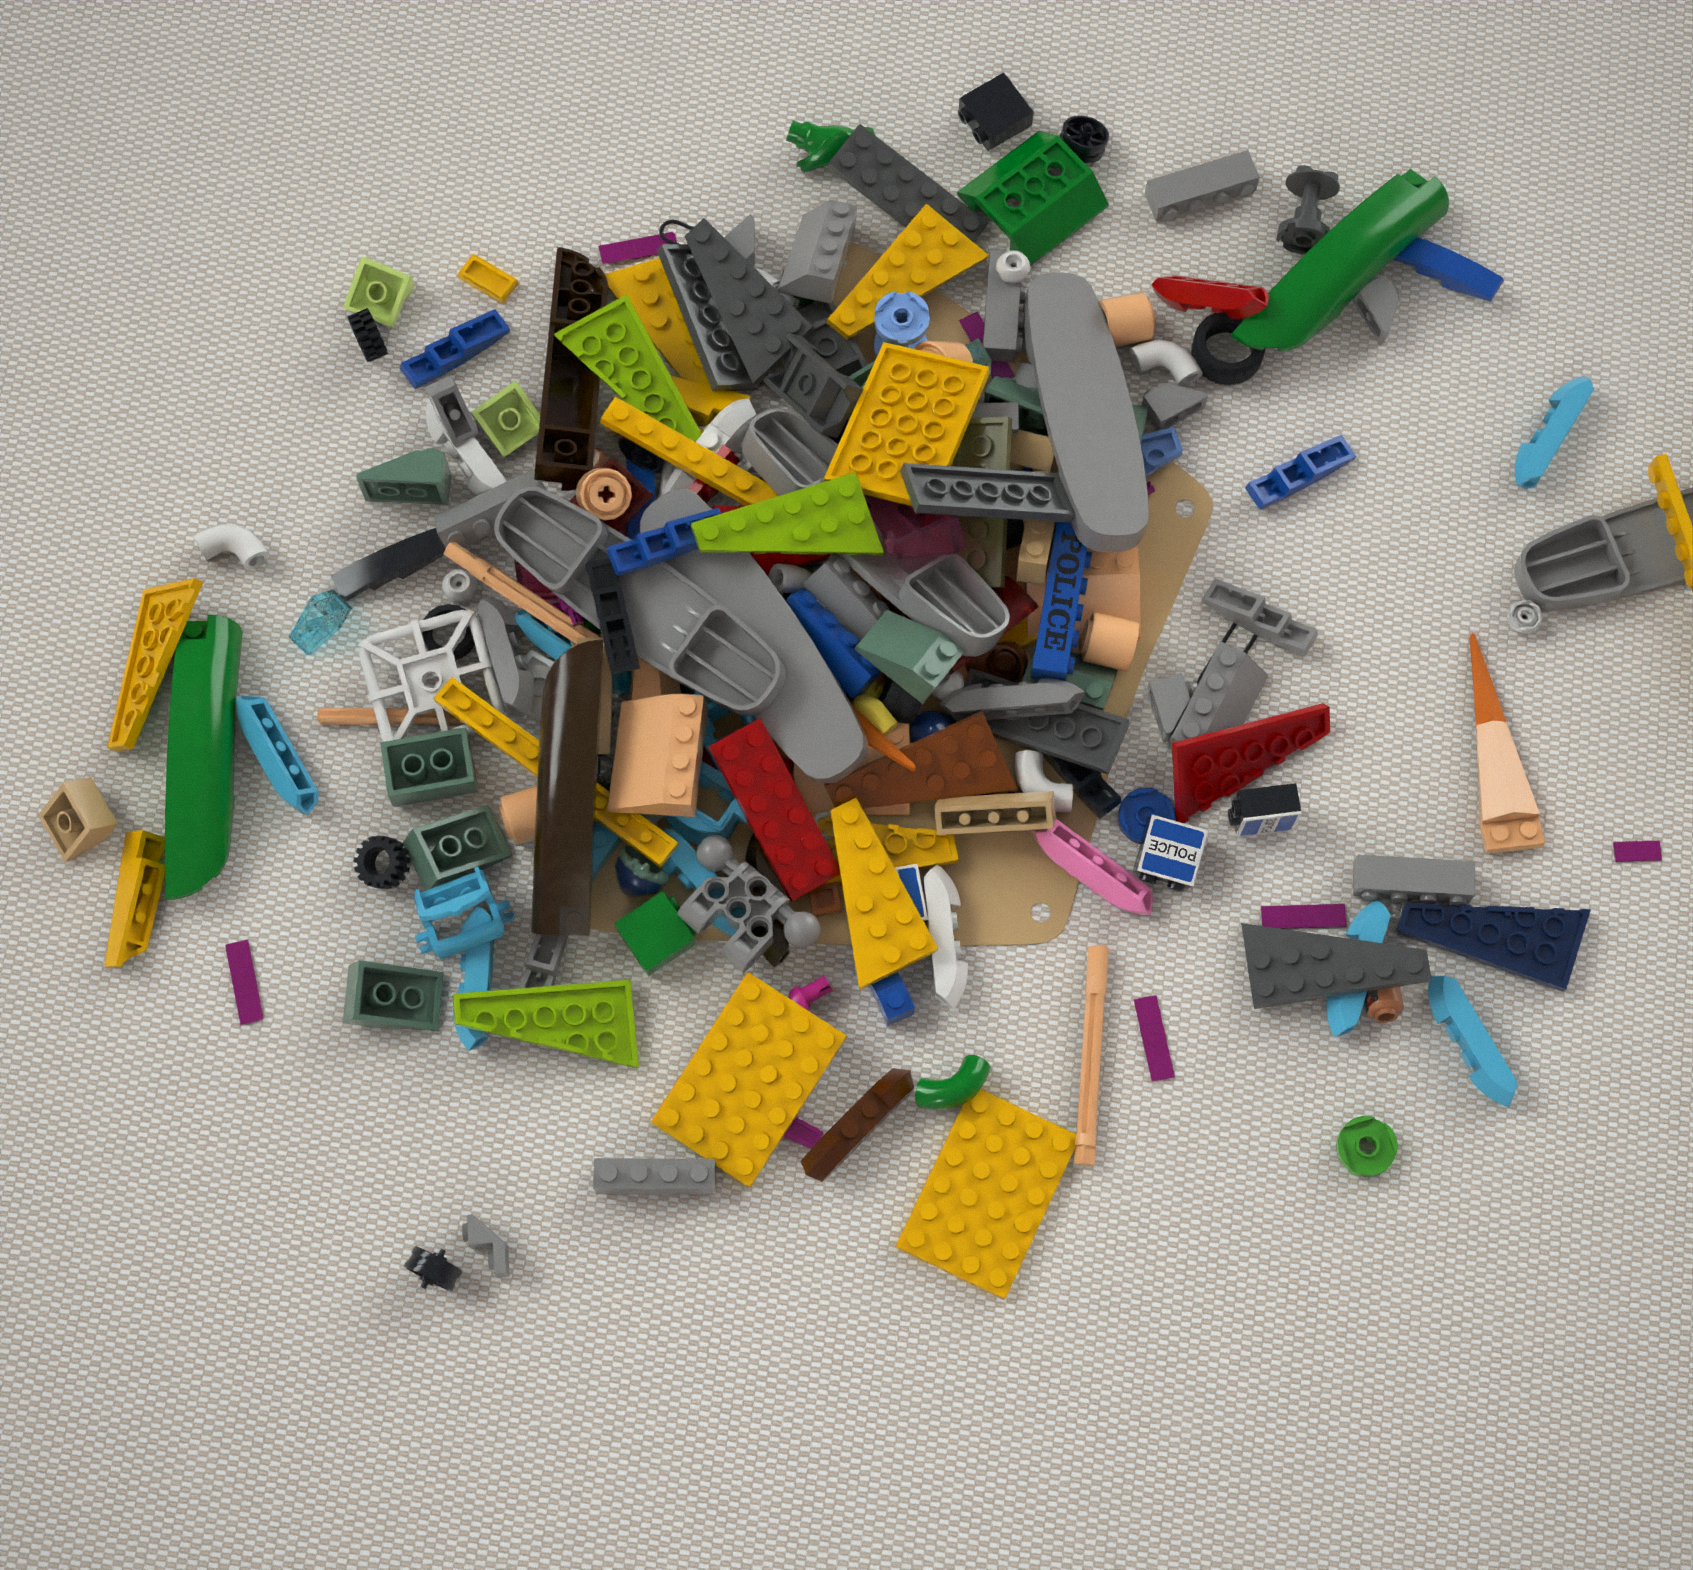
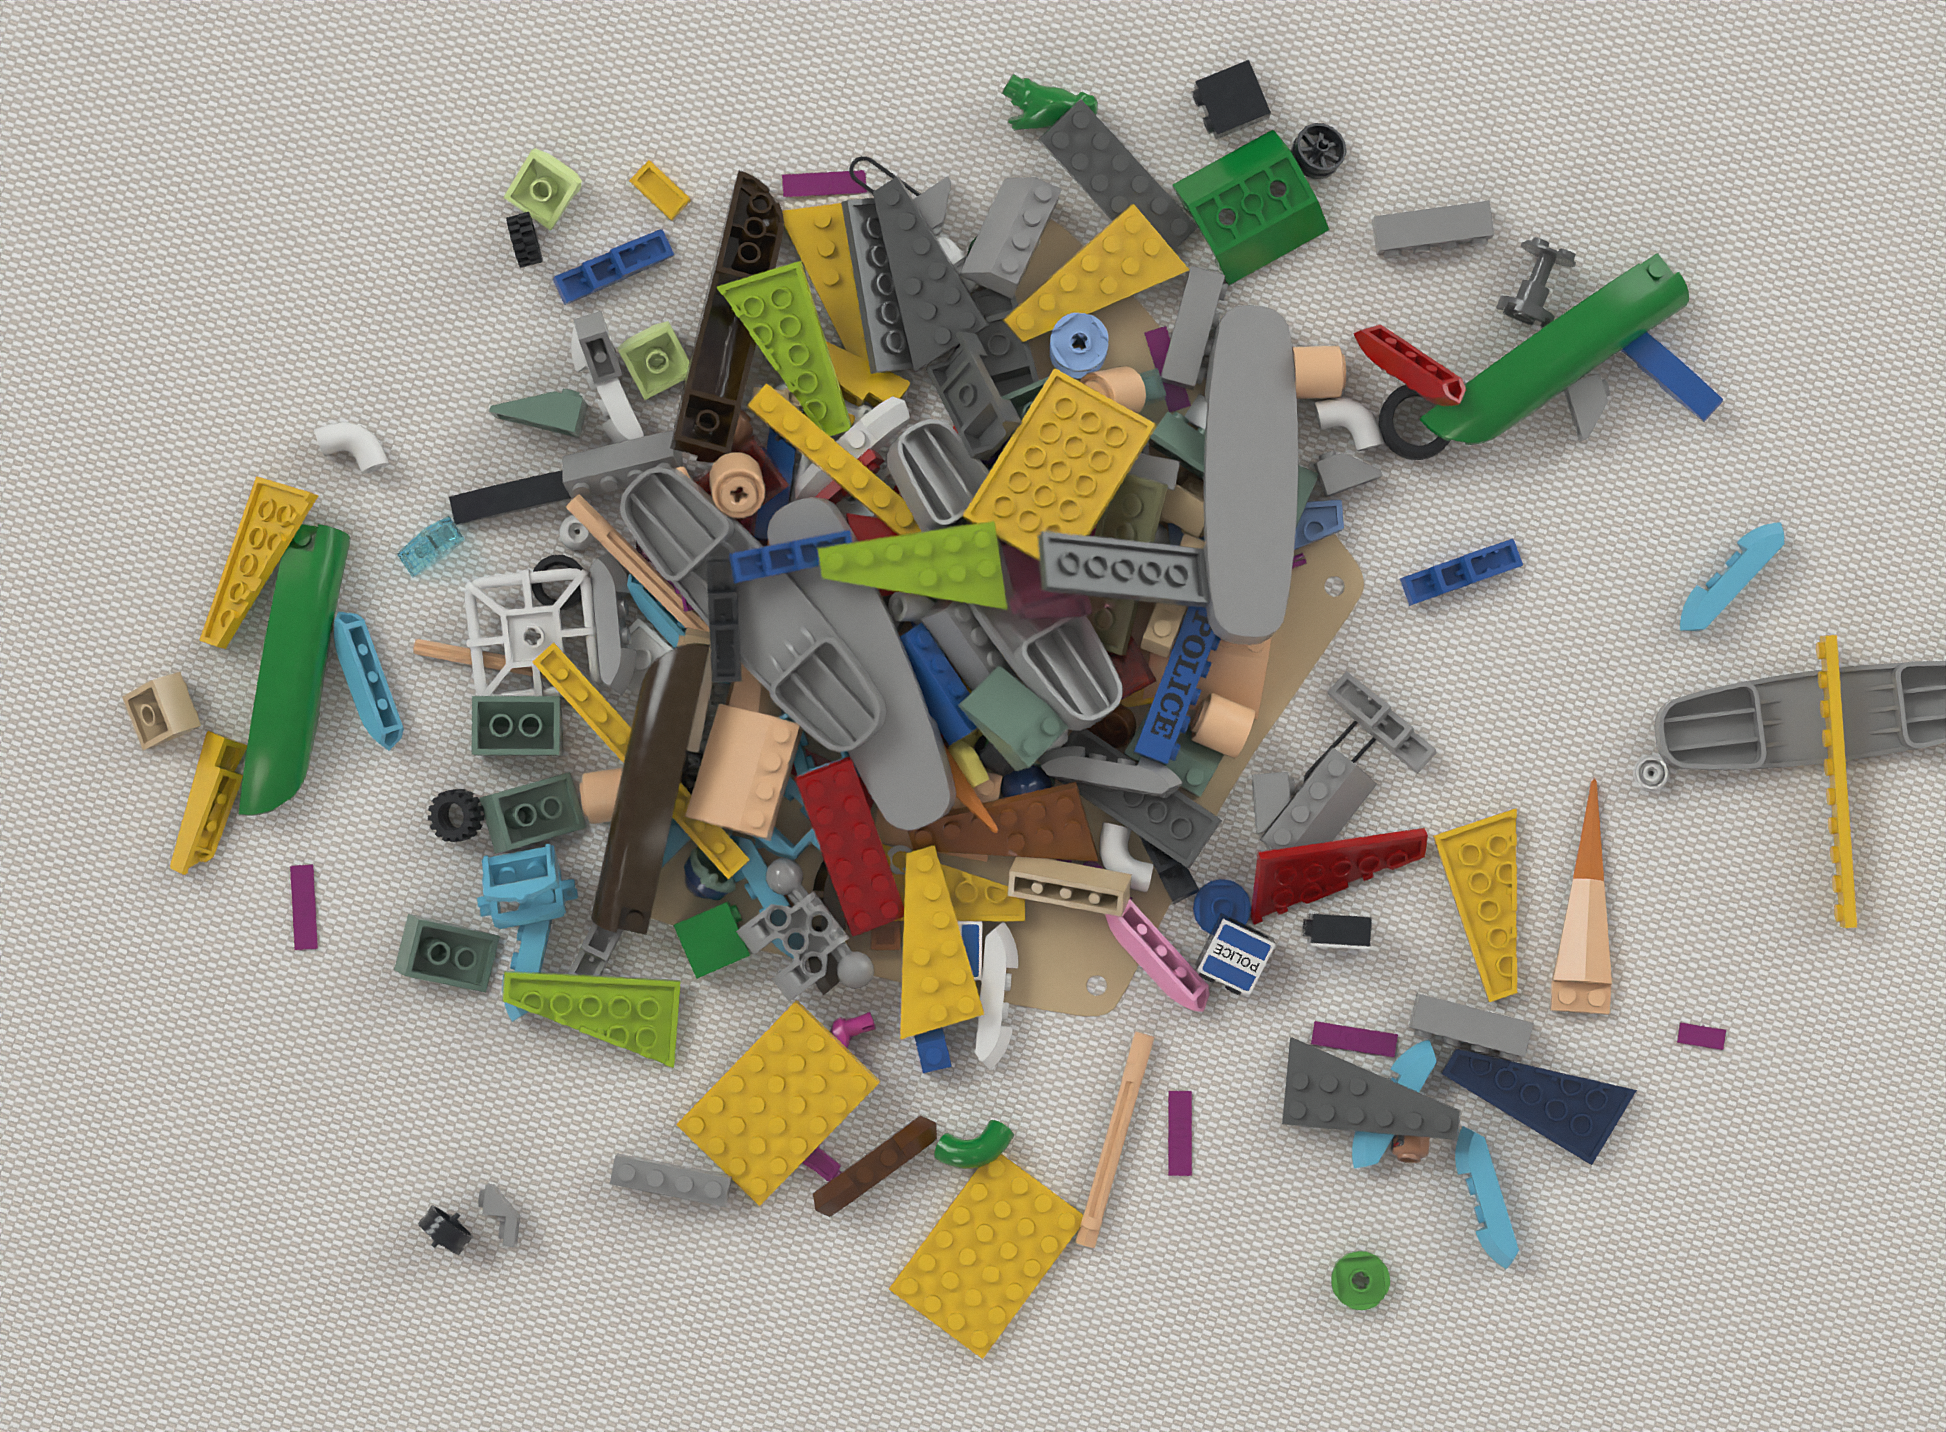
camera: 15 degrees right, 15 degrees up
(1009, 273) = (1214, 301): white plate -> none
(1393, 747) = (1483, 882): none -> yellow wing

